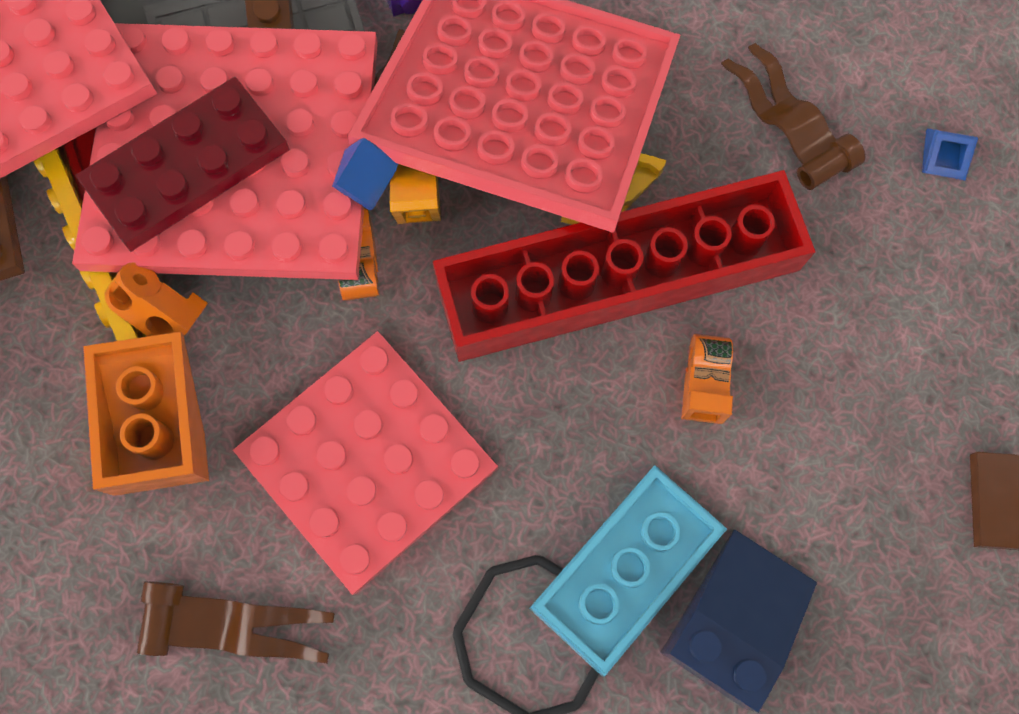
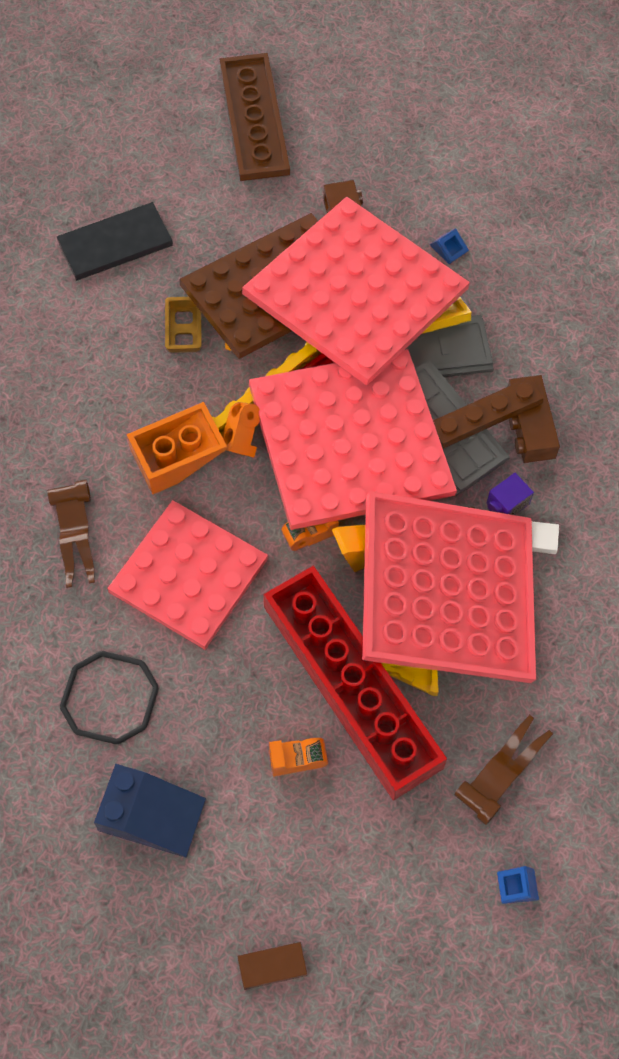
camera: 75 degrees right, 10 degrees down
(182, 163) = (326, 413): dark red plate -> none
(364, 173) = (351, 509): blue slope -> none
(628, 570) = (163, 739): medium azure tile -> none

